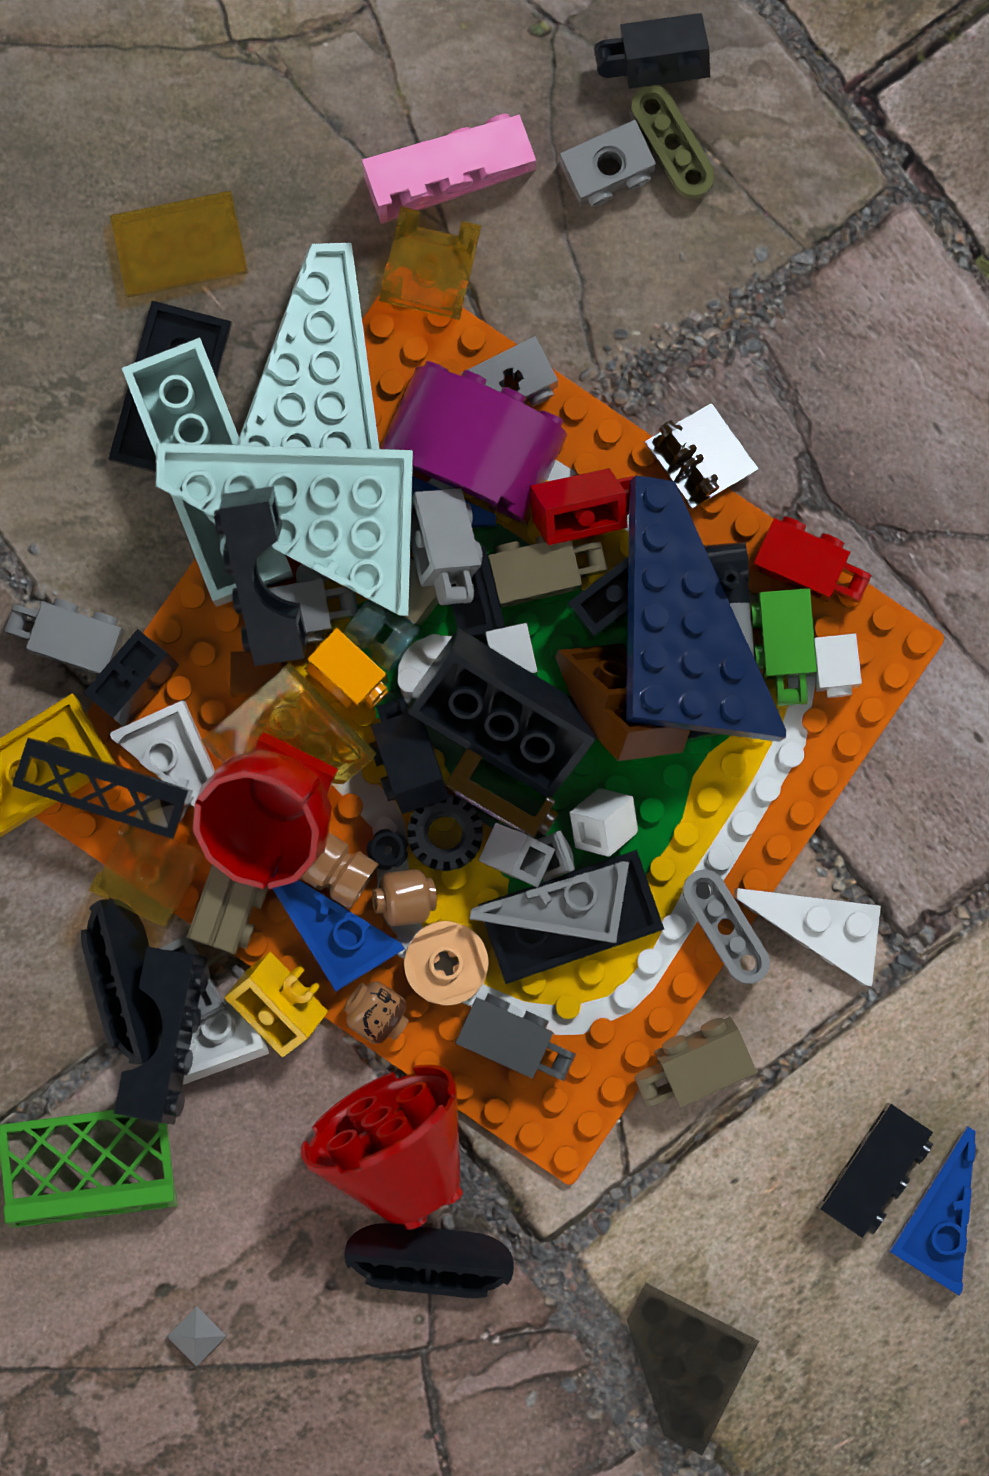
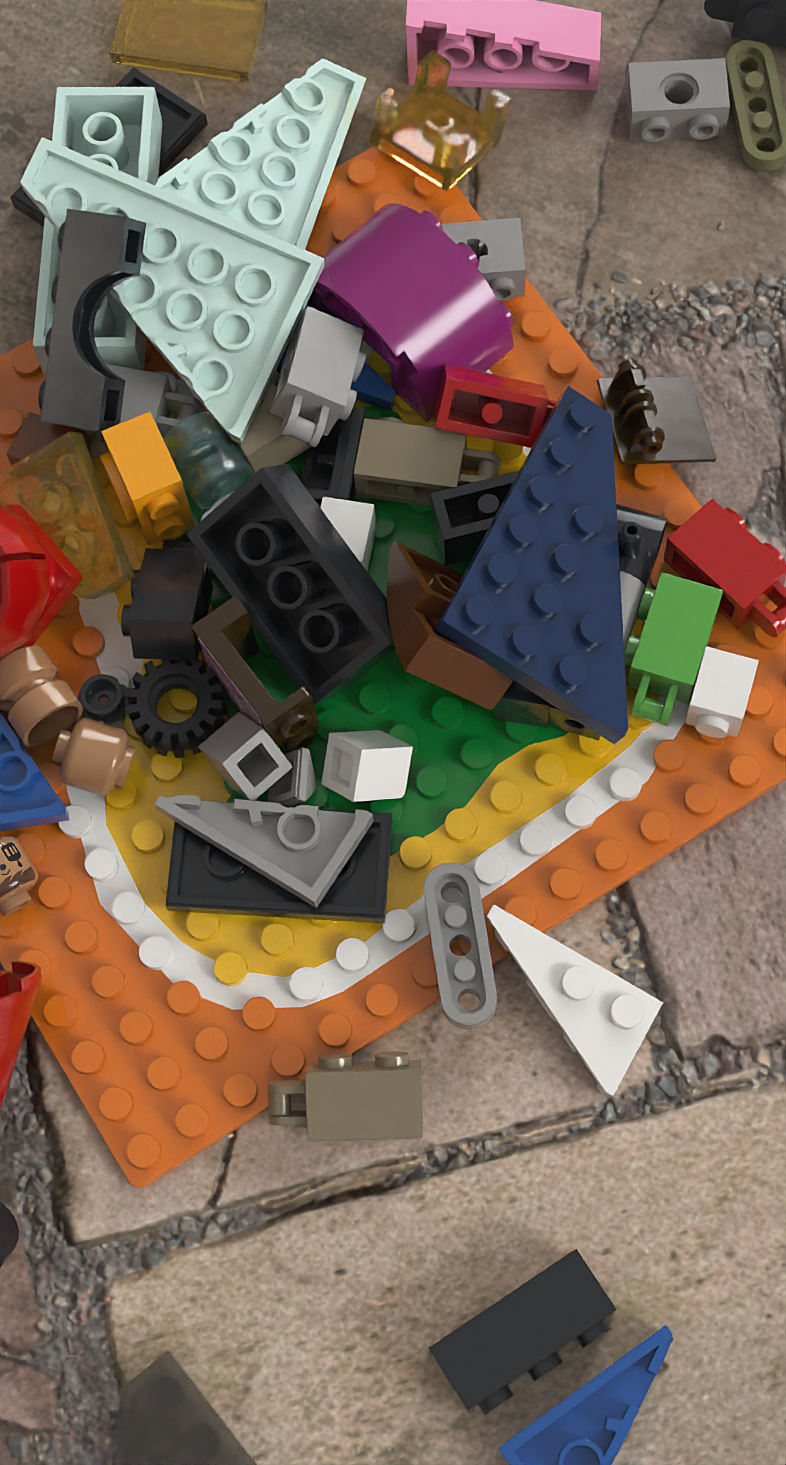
camera: 30 degrees right, 15 degrees down
(424, 952) = (88, 830): light nougat plate -> none
(512, 1039) = (140, 971): dark grey brick -> none

